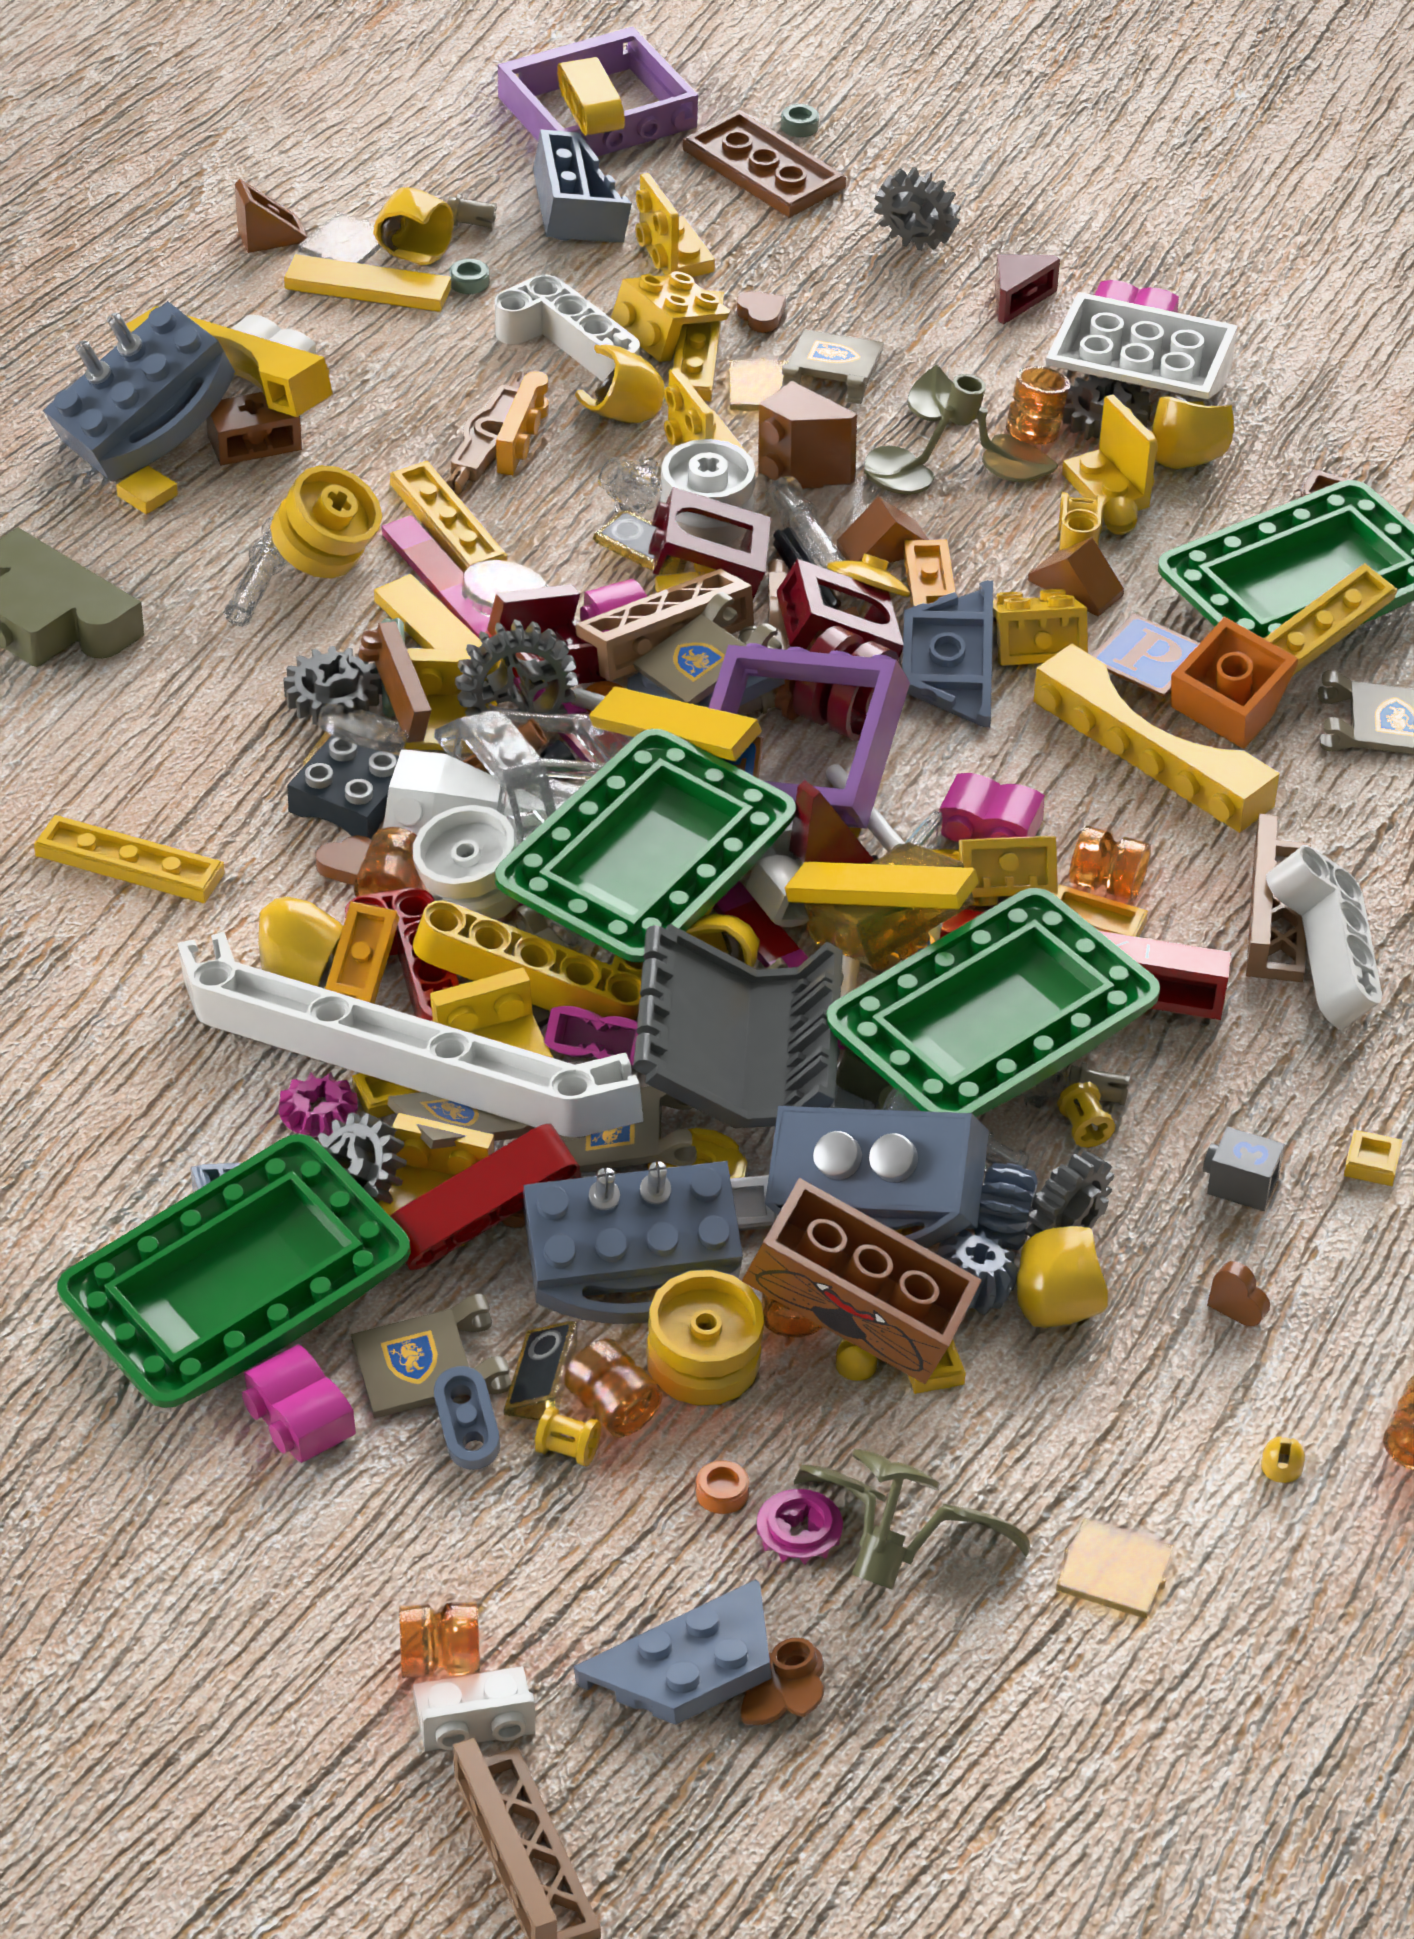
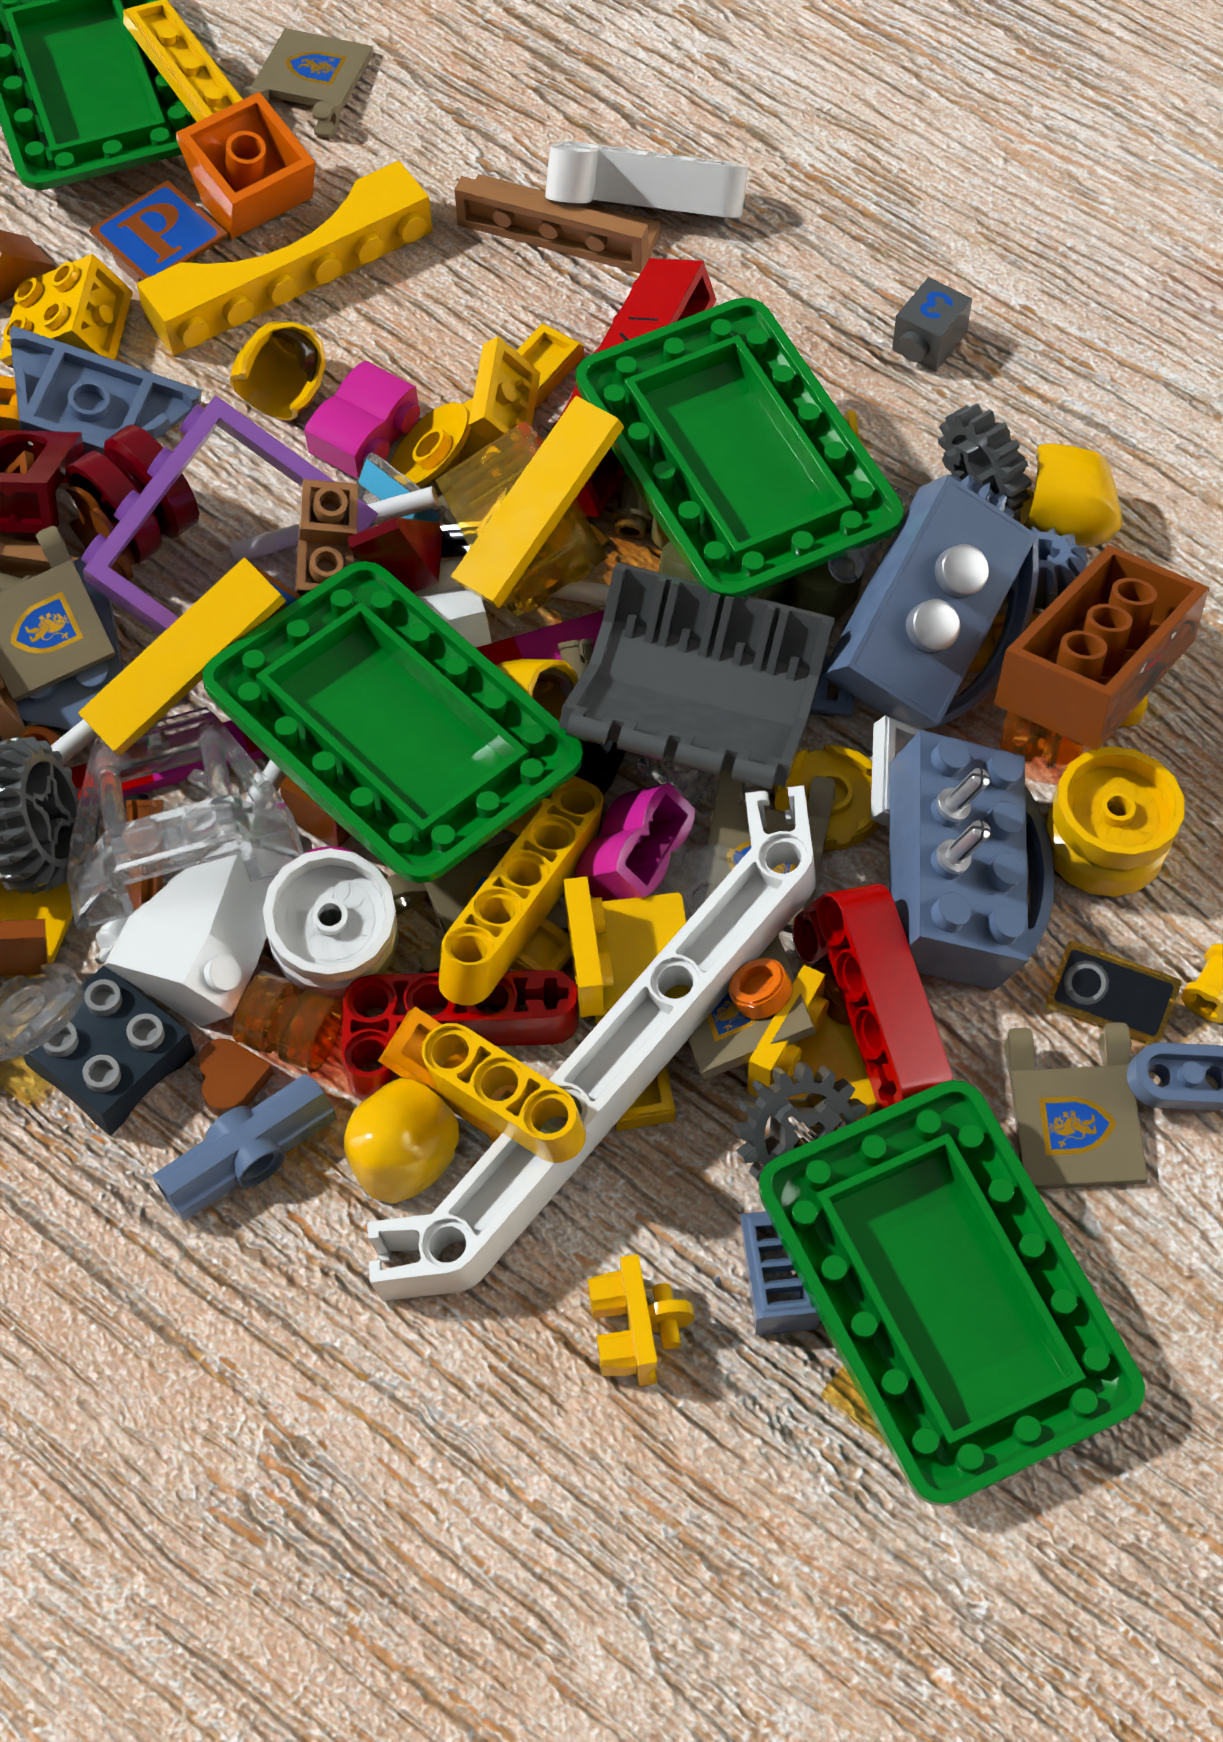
camera: 75 degrees left, 15 degrees up
(129, 859) = (144, 1340): yellow tile -> none
(182, 1108) = (634, 1349): none -> yellow hips
(284, 870) = (244, 1147): none -> sand blue piece
(296, 1110) = (660, 1193): dark pink gear -> none
(298, 1404) = (1146, 1251): dark pink brick -> none
(325, 962) = (491, 1068): none -> yellow beam
(466, 1111) = (760, 988): none -> orange tile
(610, 1384) = (1167, 923): clear orange wheel -> none
(824, 766) = (325, 522): none -> medium nougat slope
(1023, 747) = (280, 369): none -> yellow piece
(1109, 863) = (476, 320): clear orange wheel -> none
(1237, 1295) = (1096, 369): dark orange tile -> none
(1373, 1158) = (919, 232): yellow tile -> none

